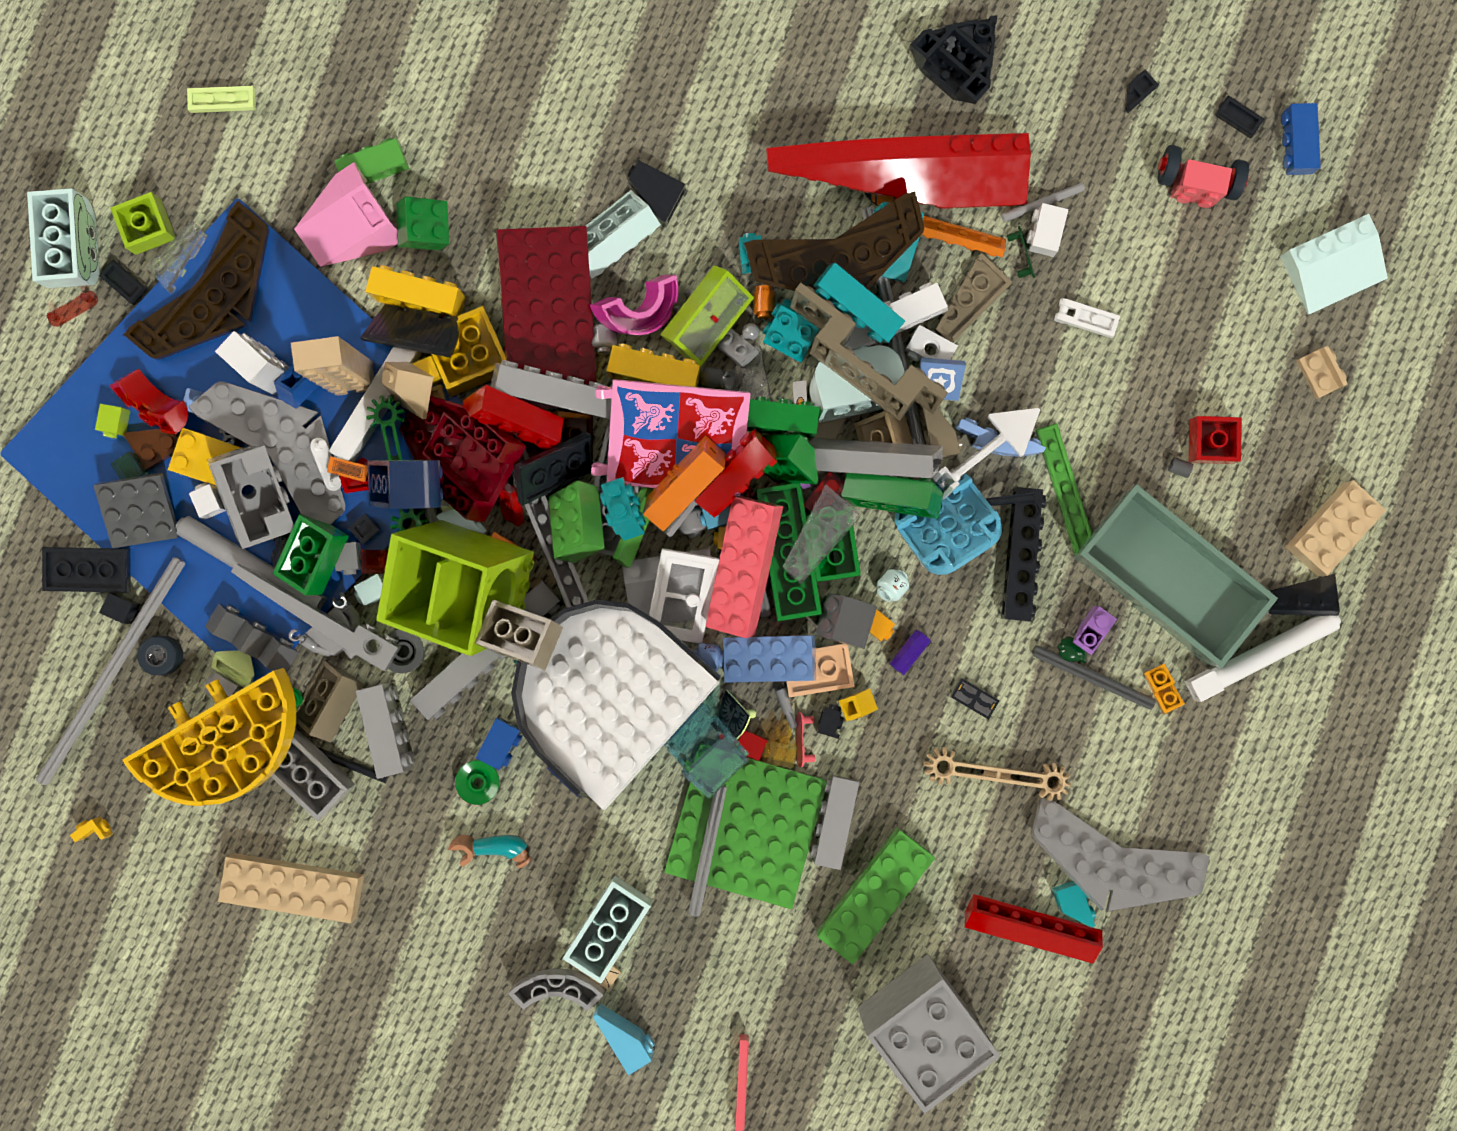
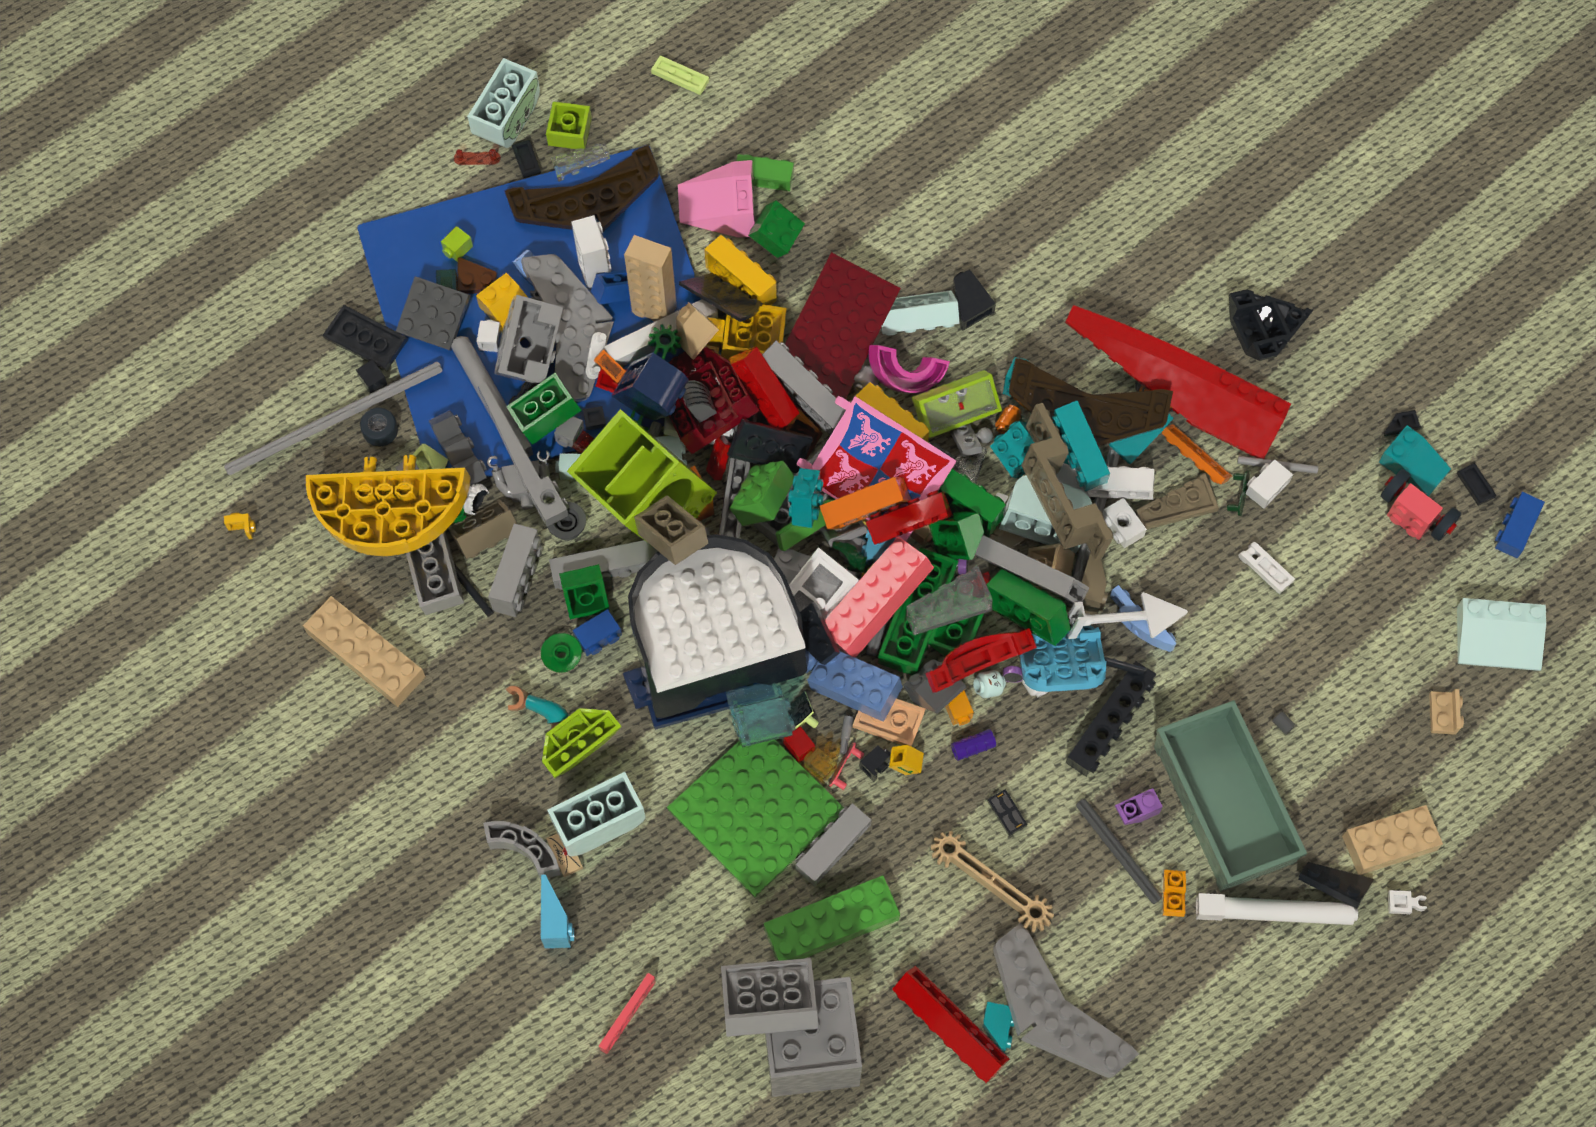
camera: 30 degrees right, 20 degrees down
(151, 403) = (491, 245): red brick -> none
(299, 677) = (474, 498): none -> white hair
(458, 464) = (699, 400): none -> dark grey brick
(463, 714) = (584, 591): none -> green brick
(543, 862) = (577, 739): none -> lime wedge
(700, 536) = (855, 557): none -> dark green helmet
(706, 636) = (817, 635): none -> black wing
(707, 852) = (713, 805): light grey axle -> none
(870, 572) = (979, 655): none -> red piece
(881, 1045) = (769, 997): none -> light grey slope
(908, 562) = (1012, 674): none -> tile
(947, 373) = (1122, 548): medium blue tile -> none
(1064, 486) = (1179, 678): bright green tile -> none
(1070, 651) = (1111, 818): dark green animal -> none
(1171, 123) = (1417, 457): none -> teal slope
(1215, 440) = (1323, 713): red brick -> none
(1371, 581) = (1401, 902): none -> white plate

